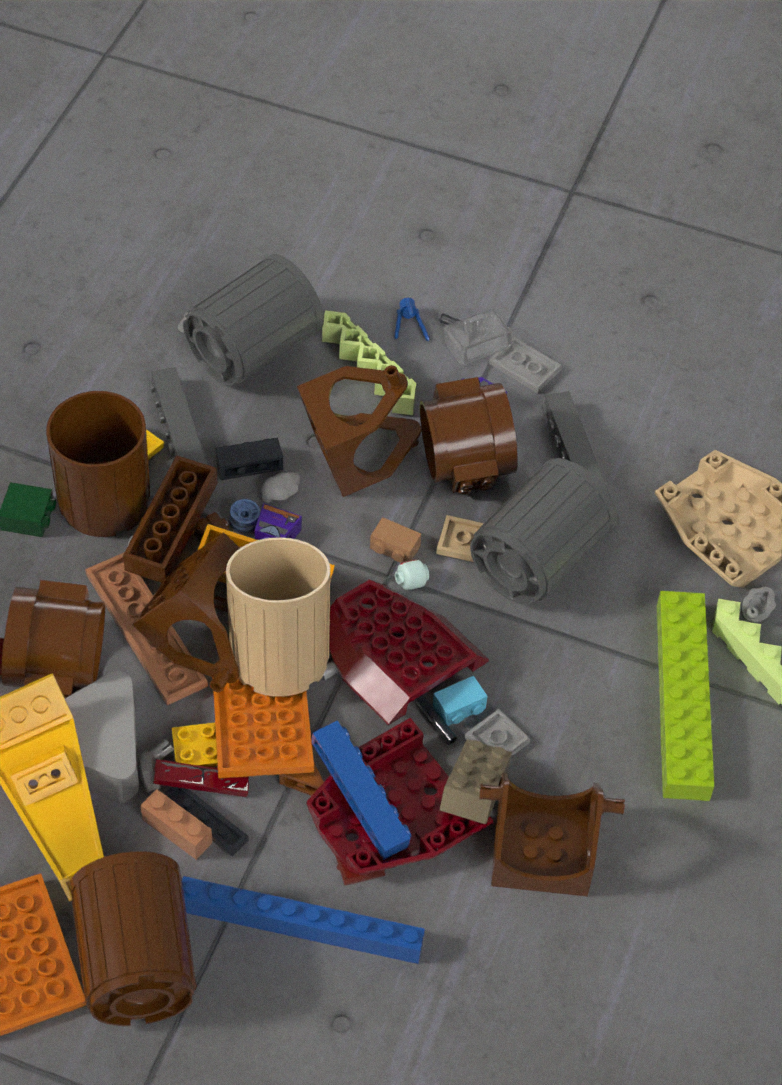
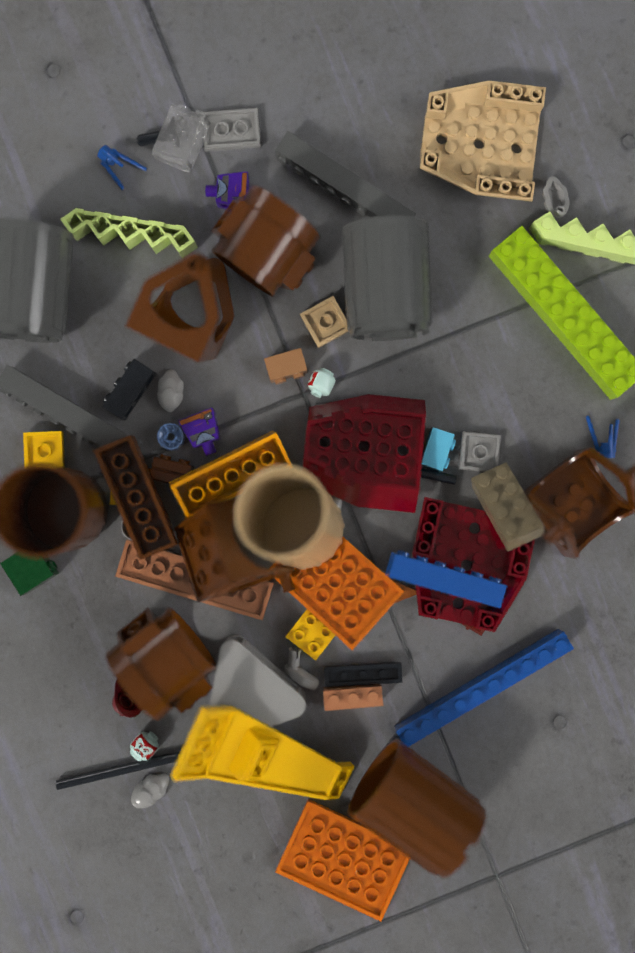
camera: 35 degrees left, 35 degrees up
(198, 778) = (329, 661): dark red tile -> none
(619, 827) = (607, 448): none -> blue plant

